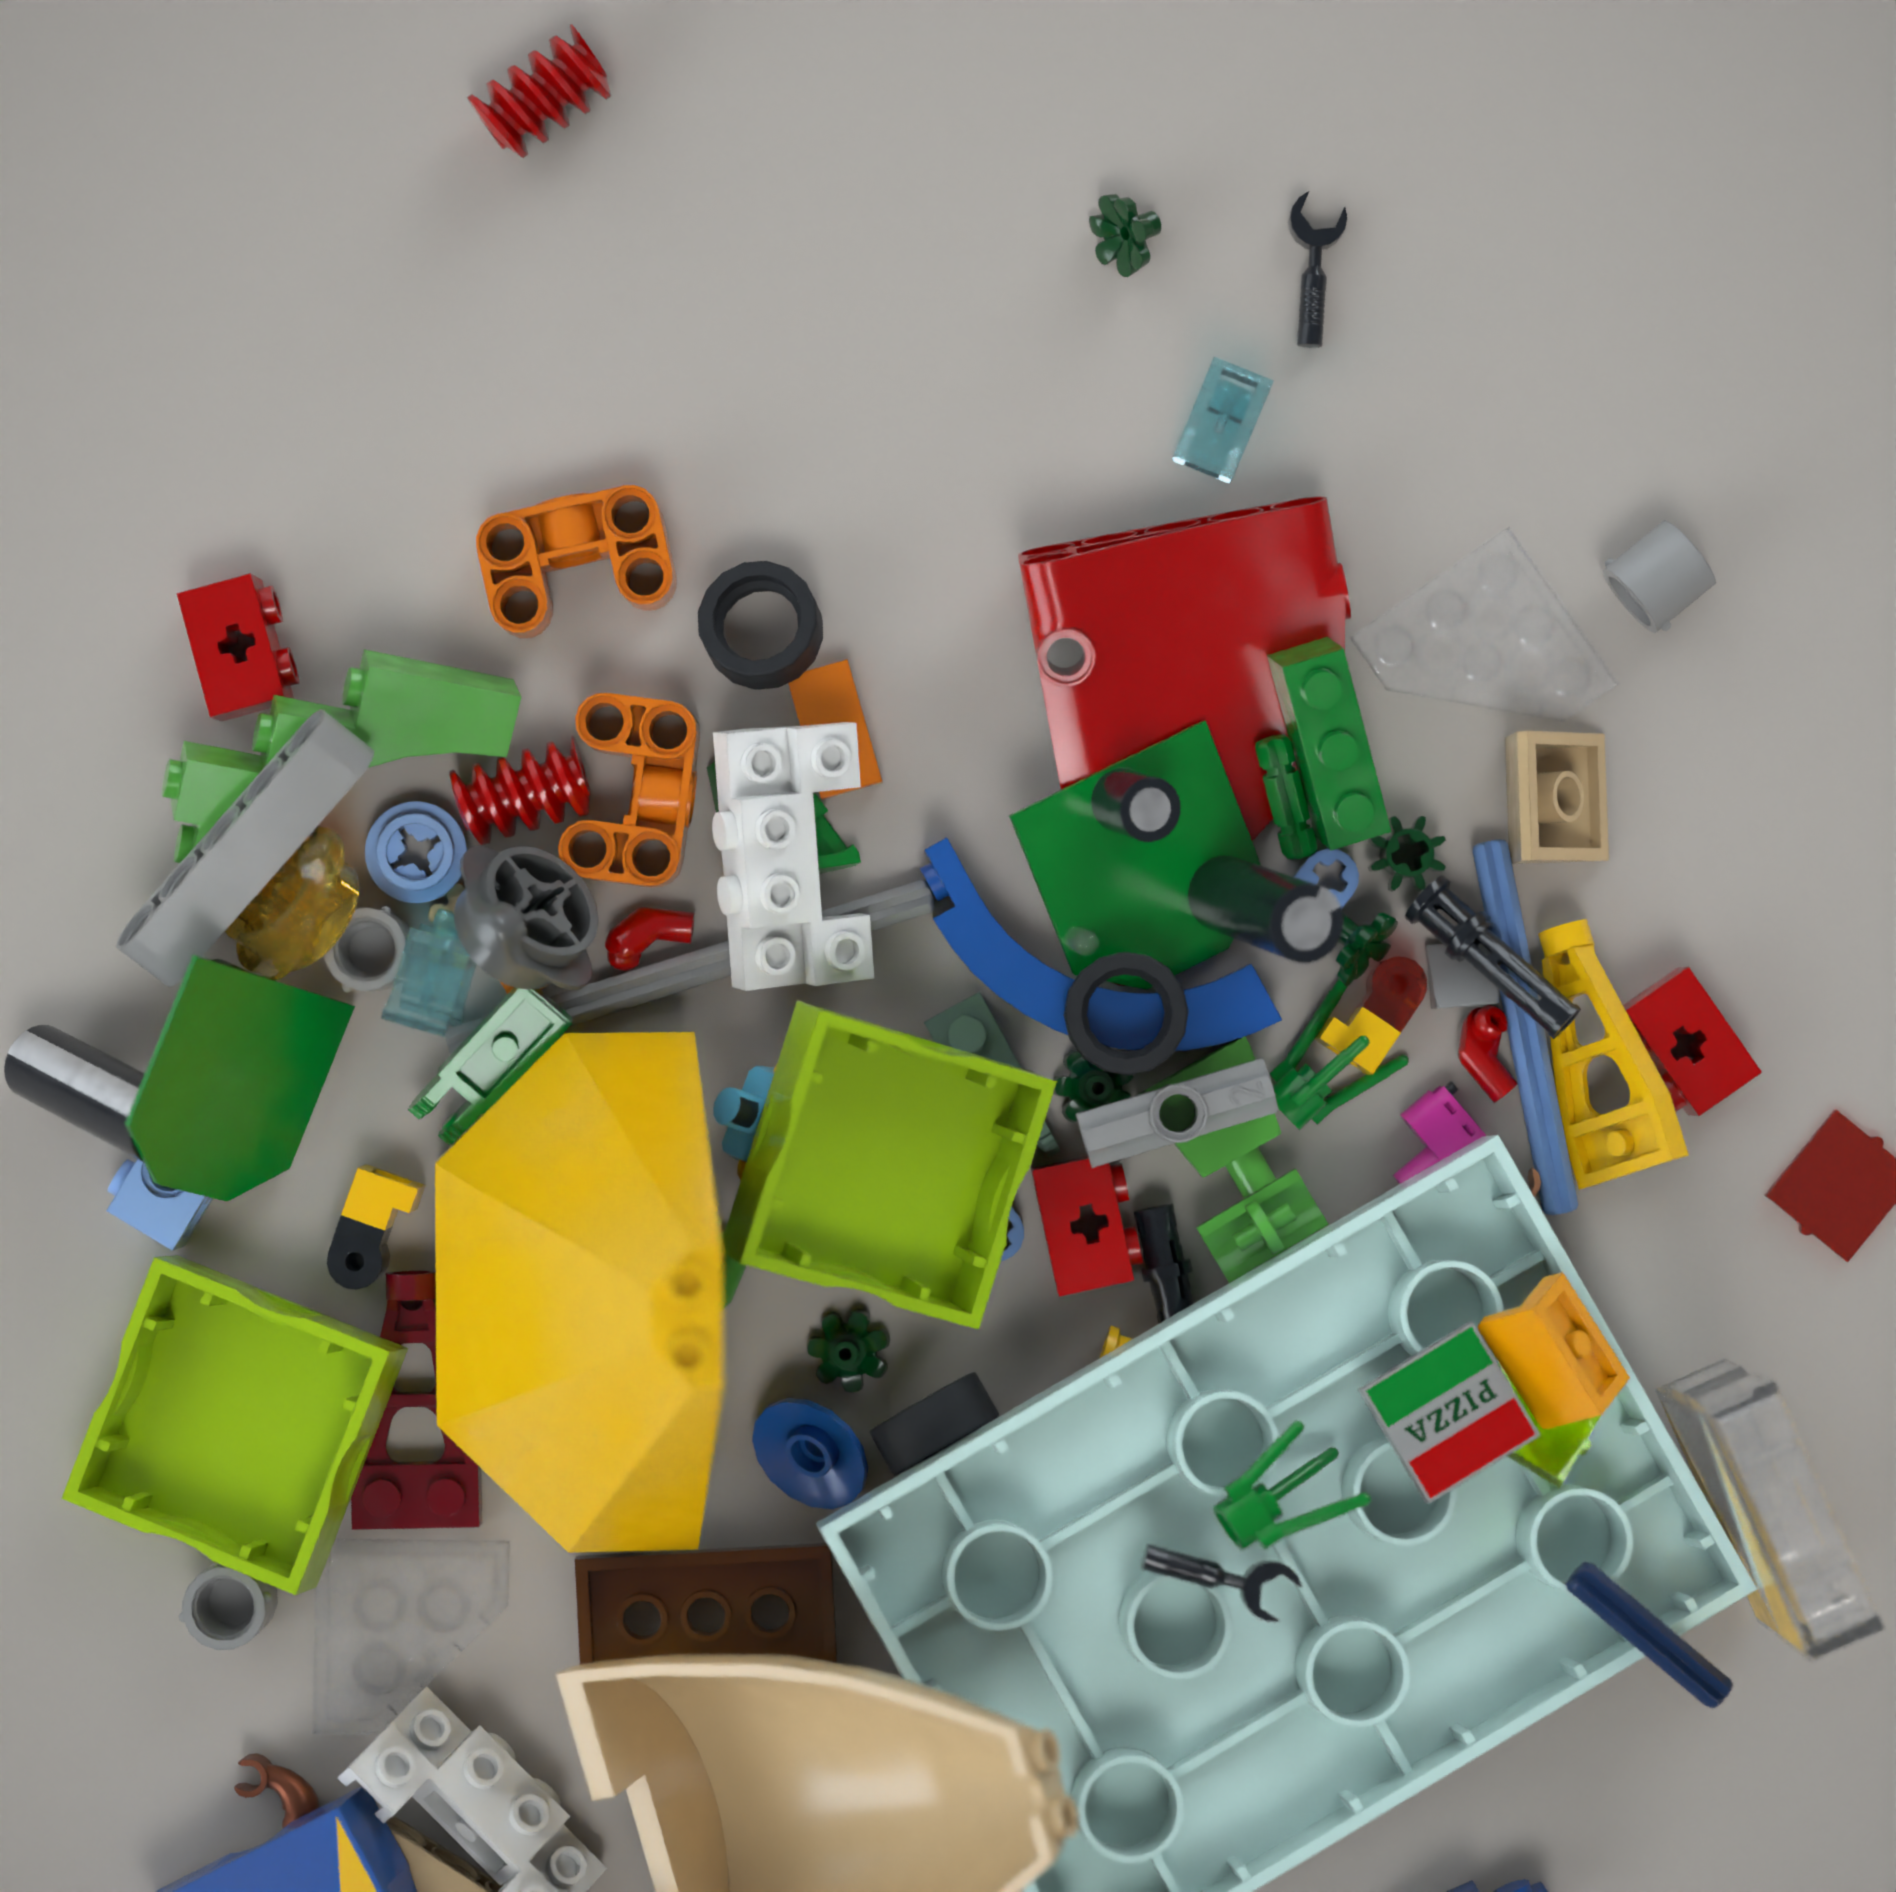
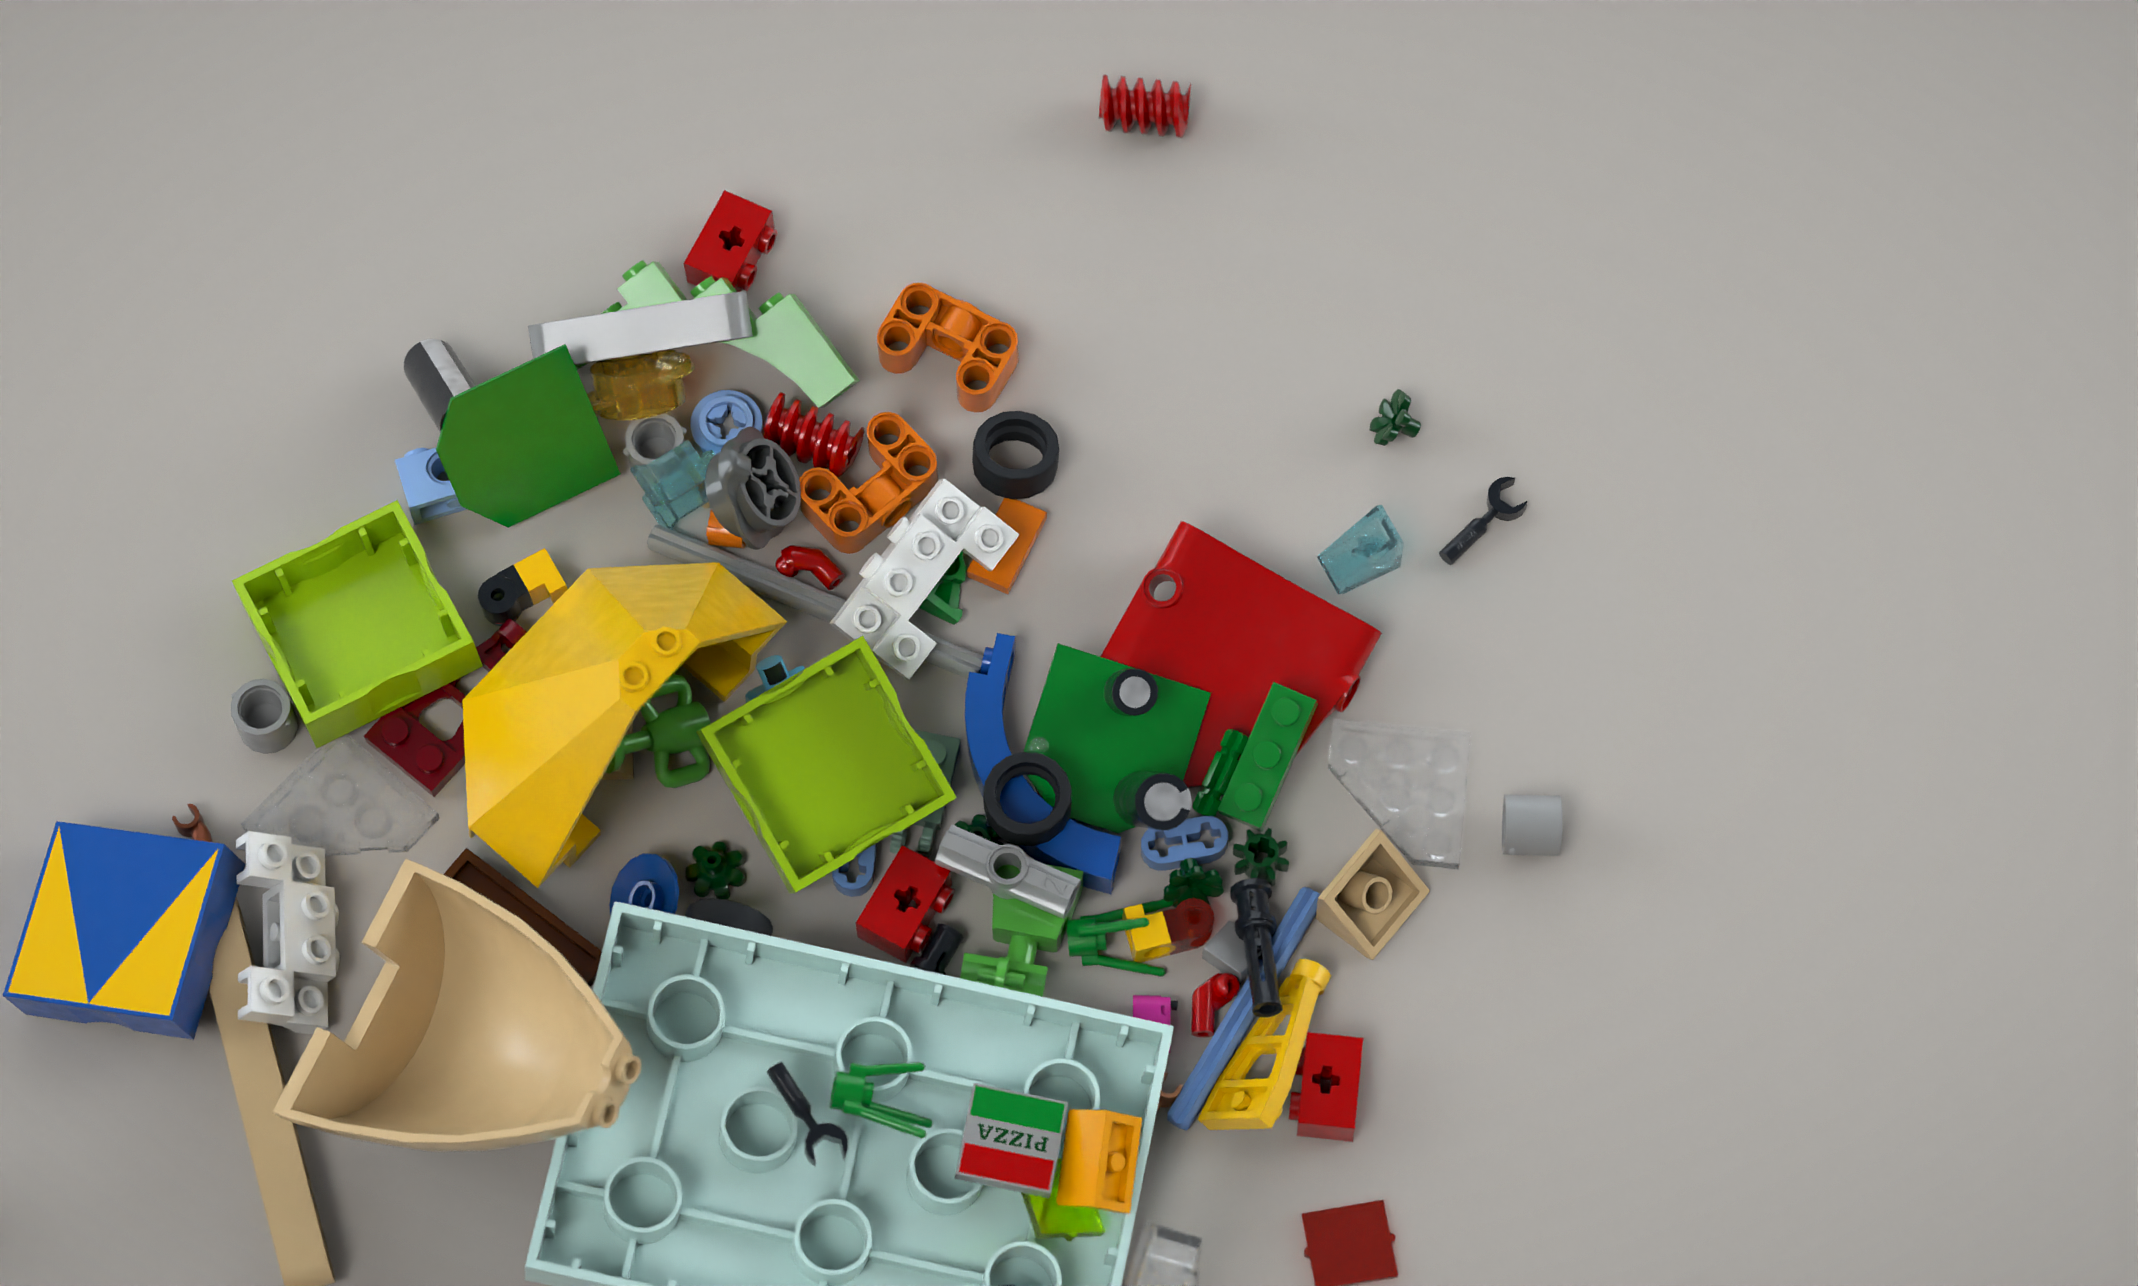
camera: 40 degrees right, 20 degrees down
(493, 1057) = (673, 545): hinge -> none

